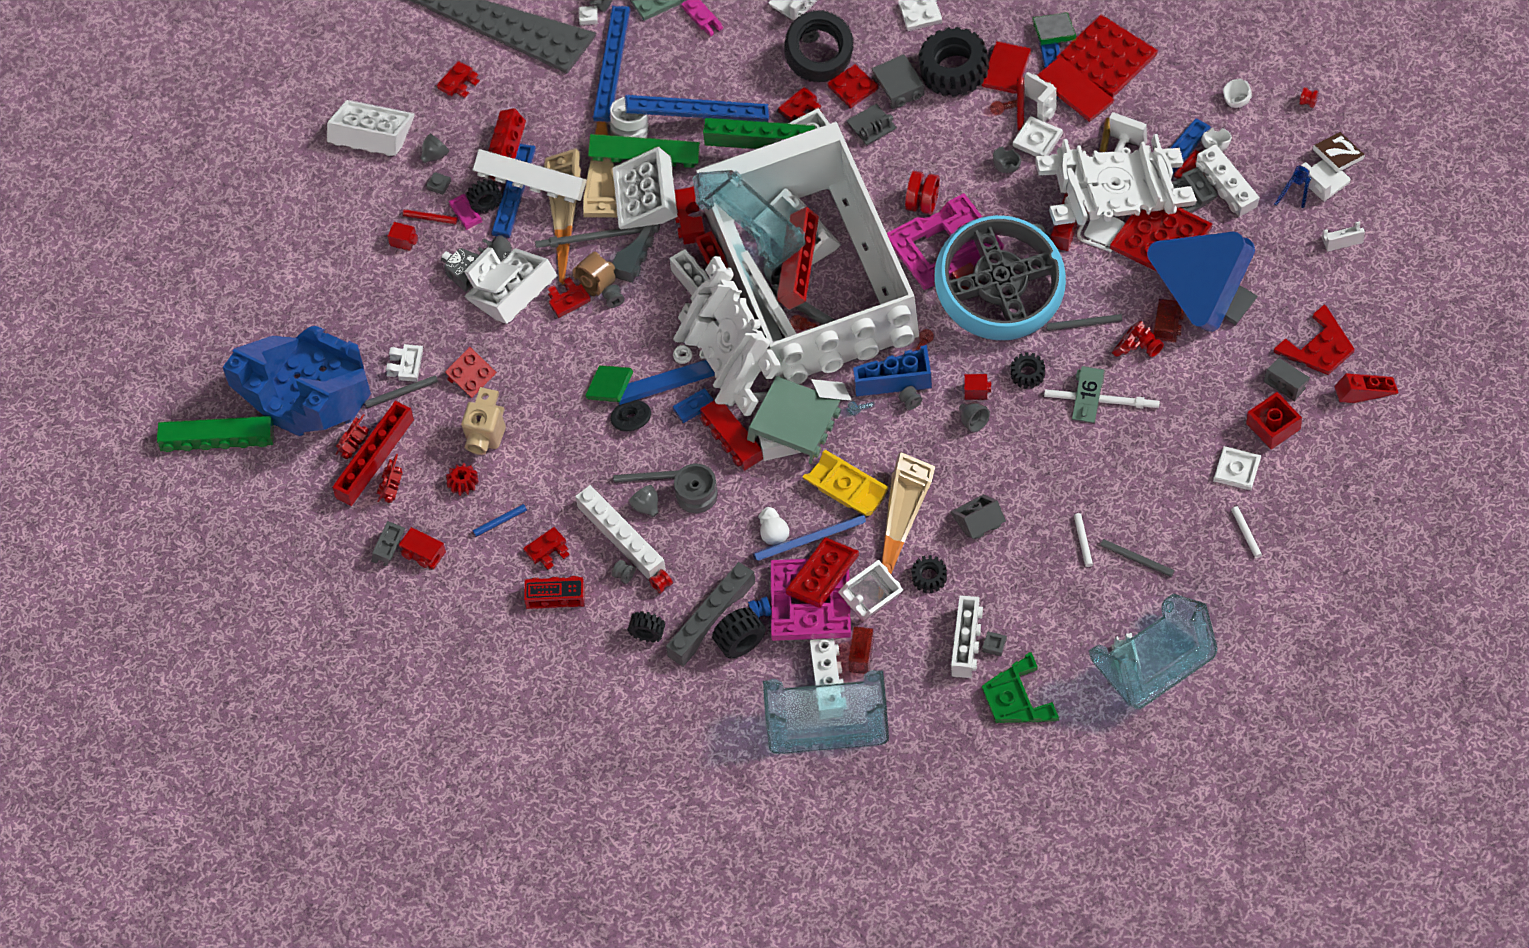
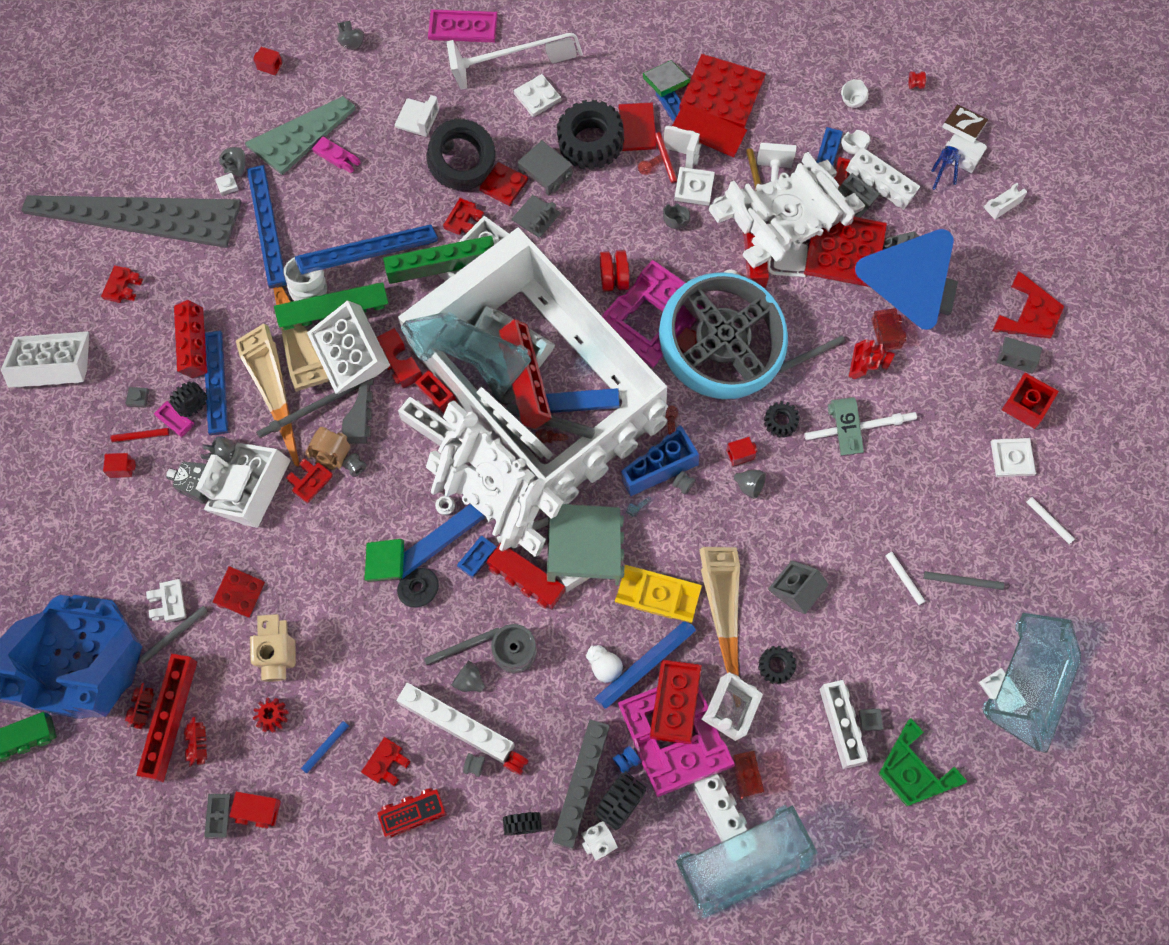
camera: 25 degrees left, 10 degrees up
(433, 149) = (119, 364): dark grey helmet -> none
(528, 174) = (227, 366): white brick -> none
(707, 661) = (598, 841): none -> white brick
(831, 389) = (606, 498): white sticker -> none
(842, 299) = (583, 400): none -> blue tile
(1360, 387) = (1091, 342): red slope -> none

